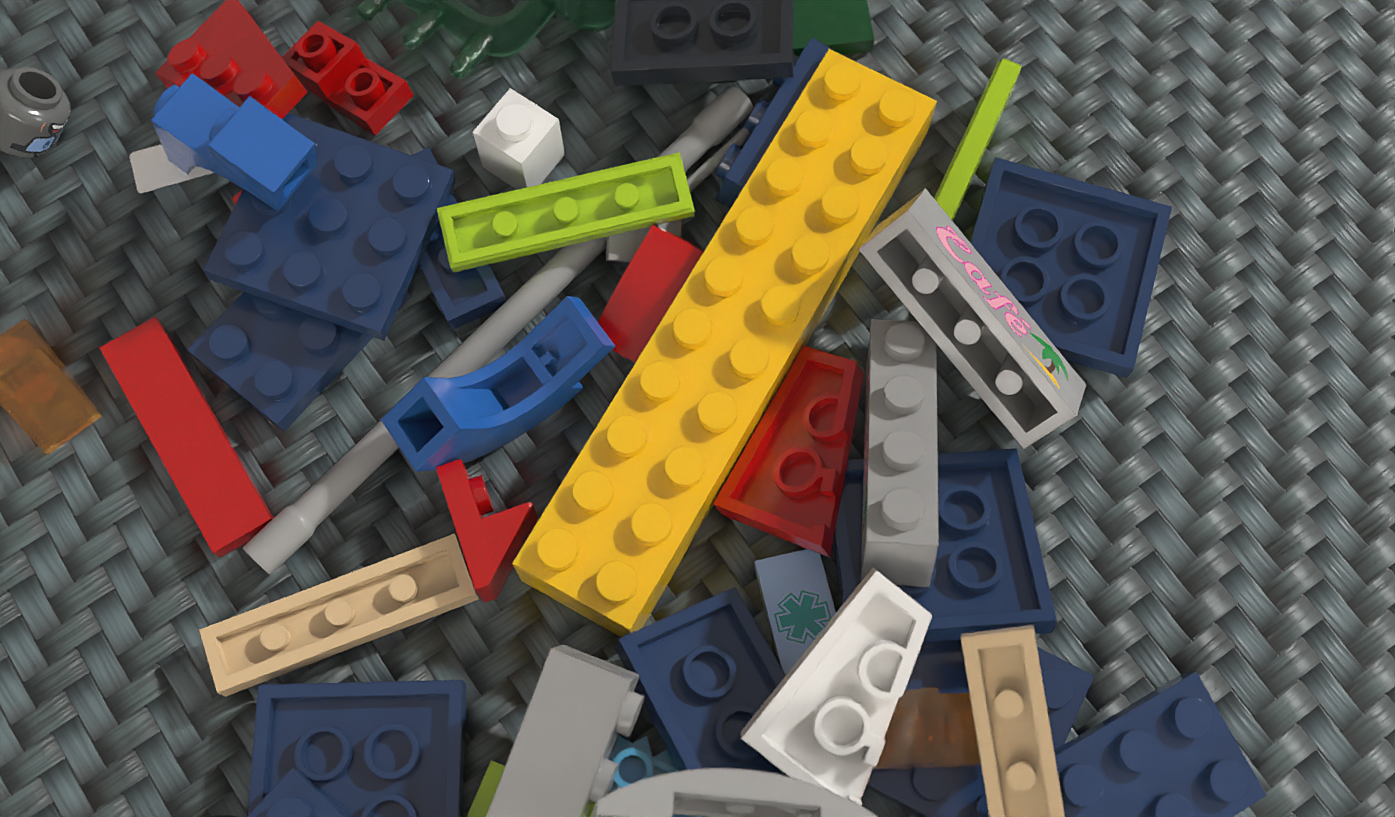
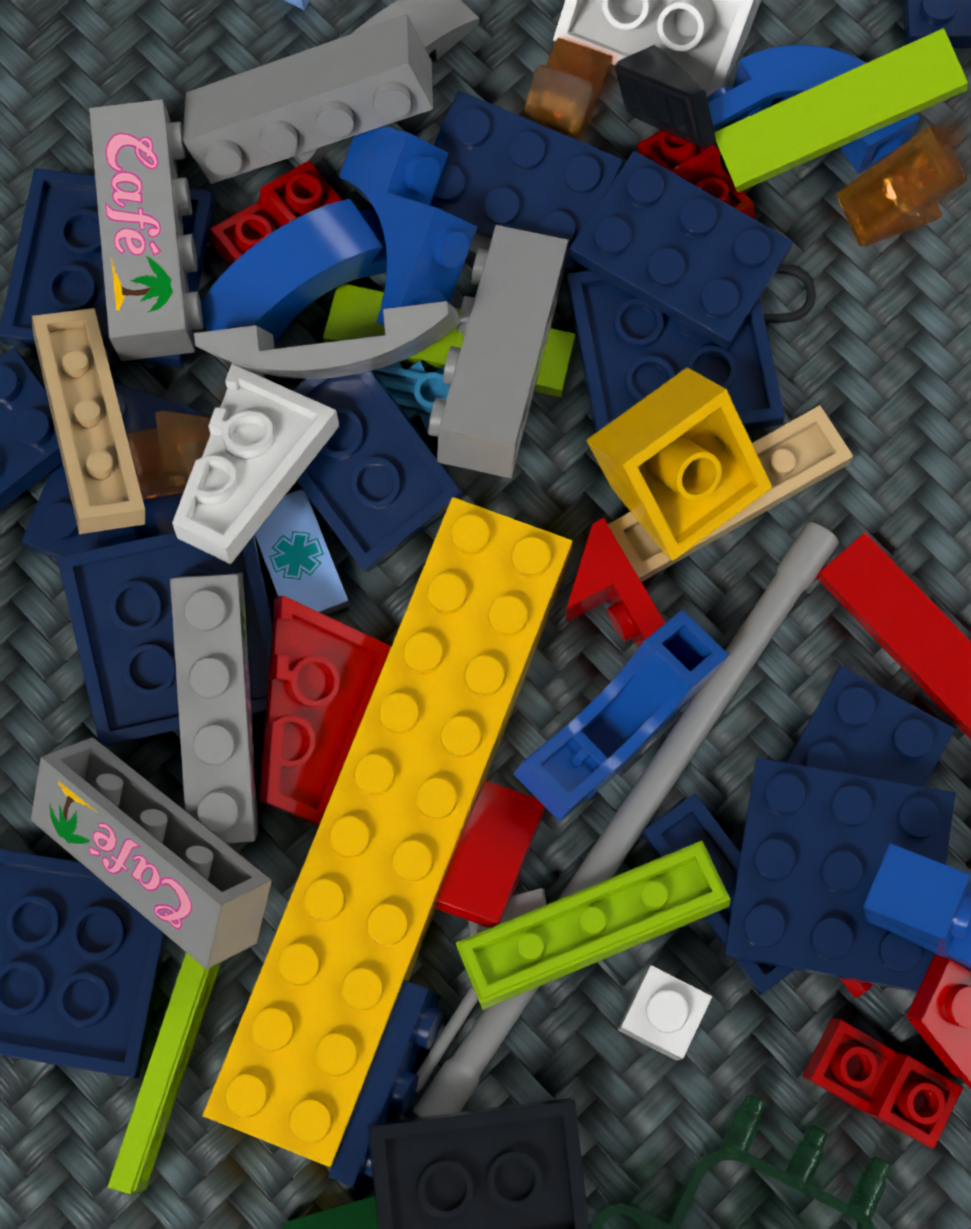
camera: 175 degrees right, 5 degrees up
(380, 639) = (681, 461): none -> yellow slope

